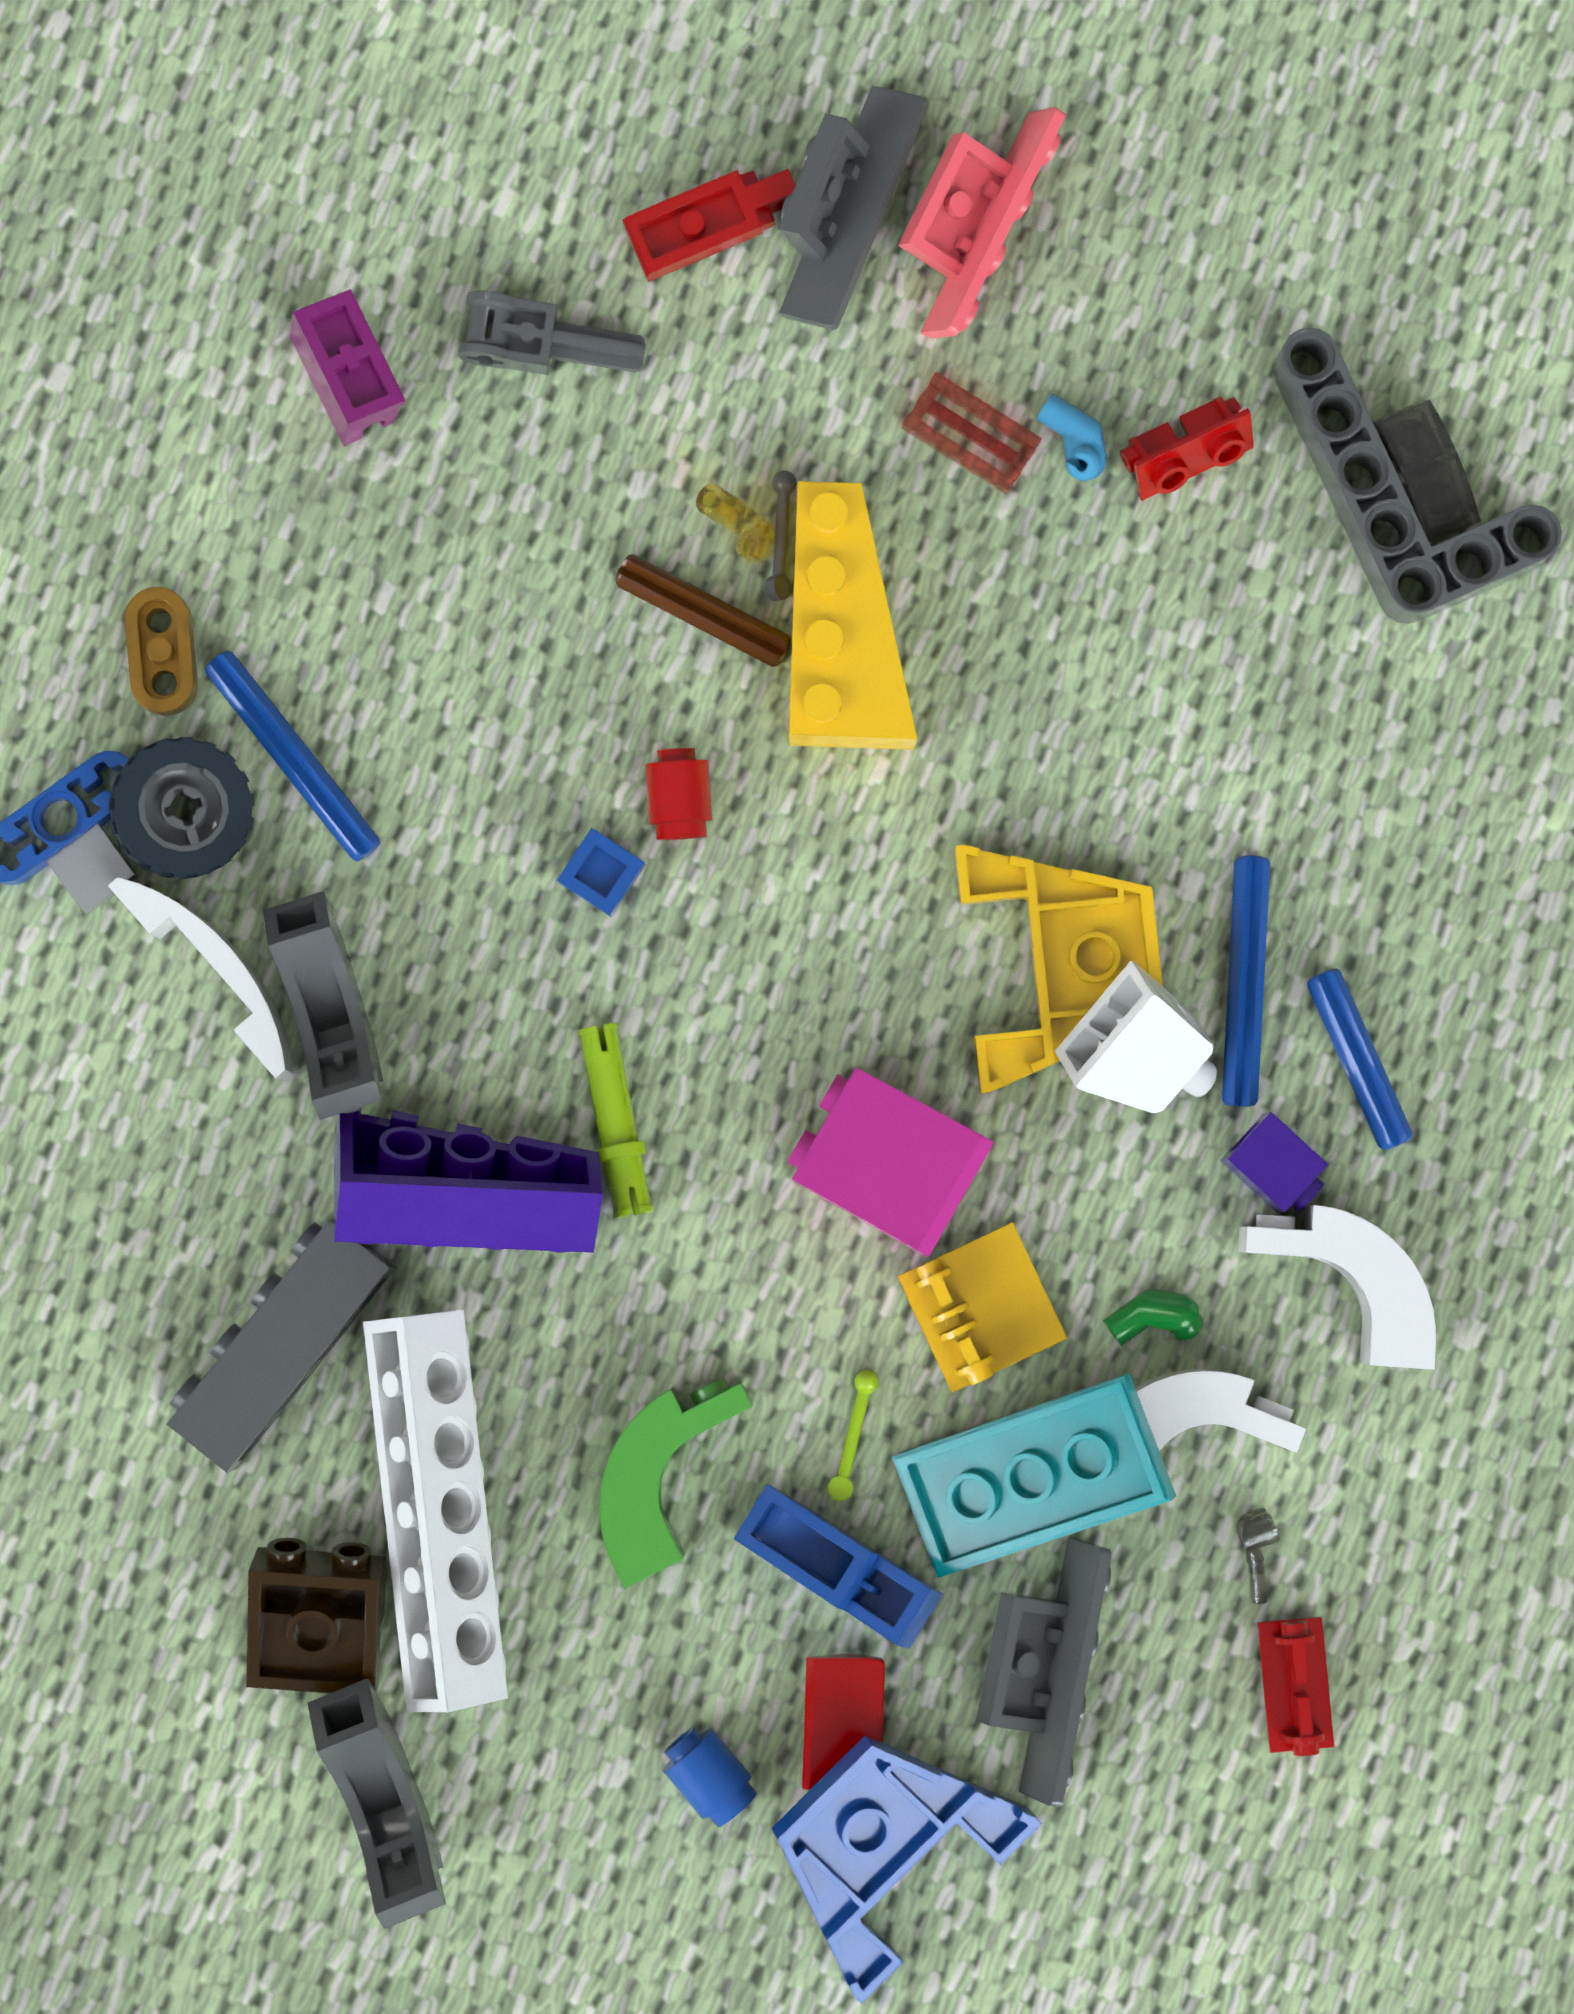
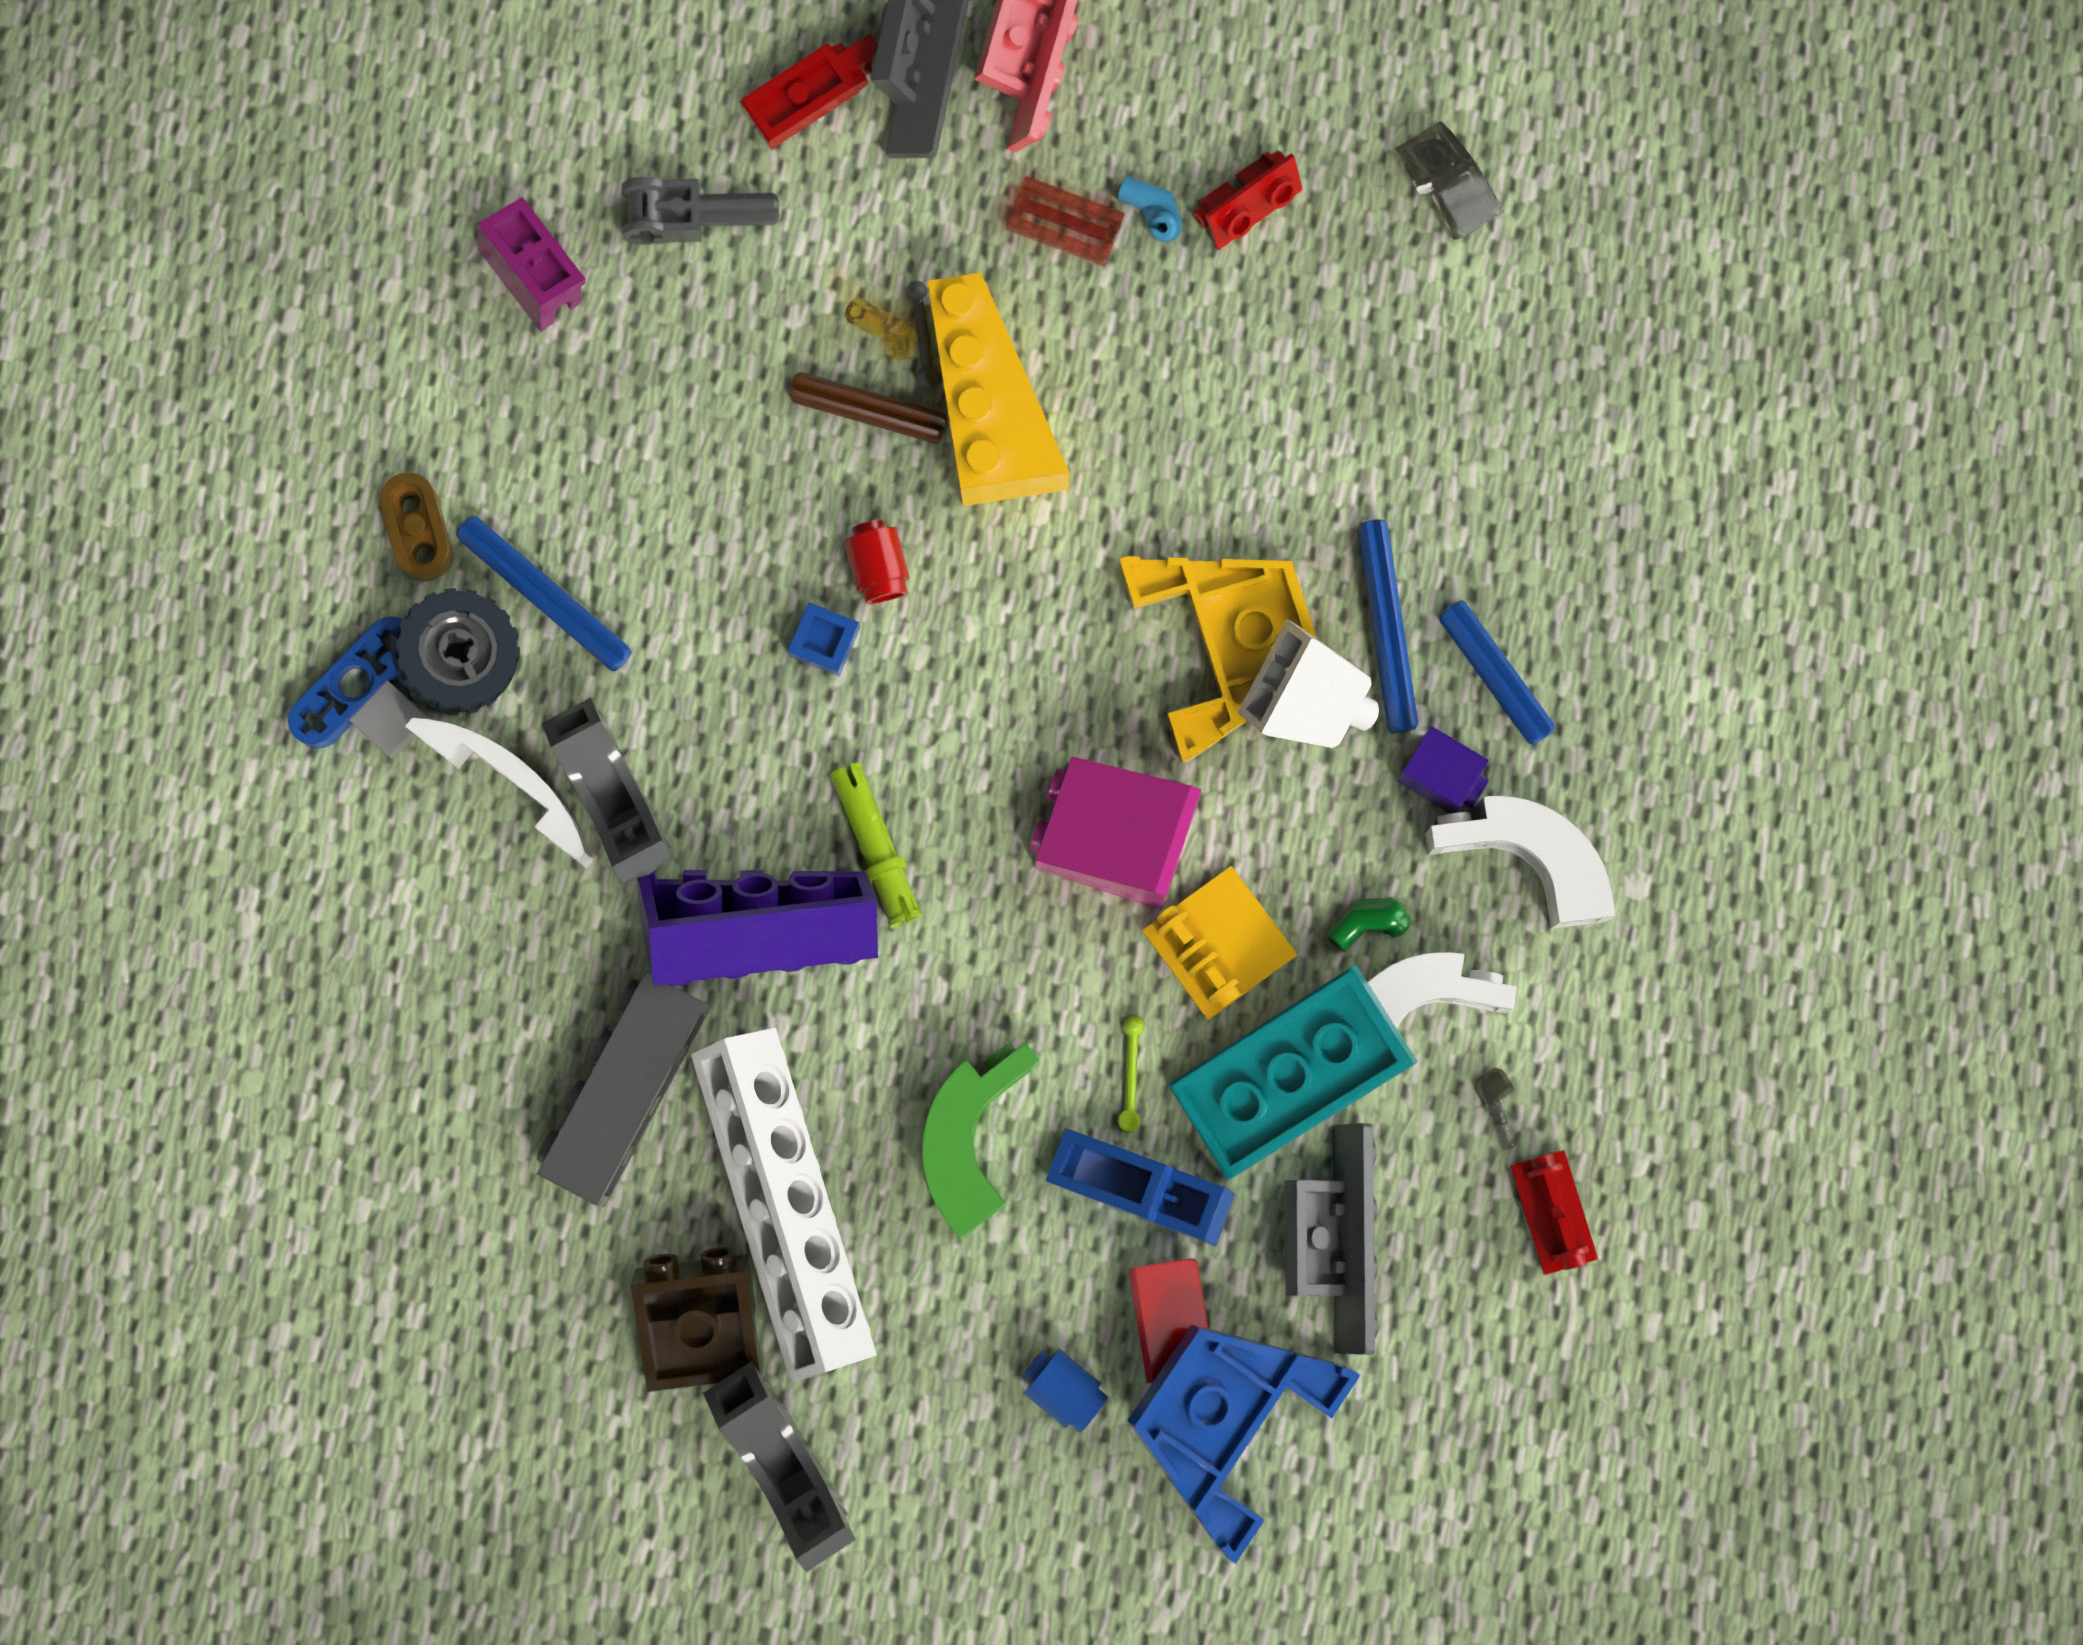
camera: 10 degrees left, 5 degrees down
(1387, 499) = (1424, 209): dark grey beam -> none

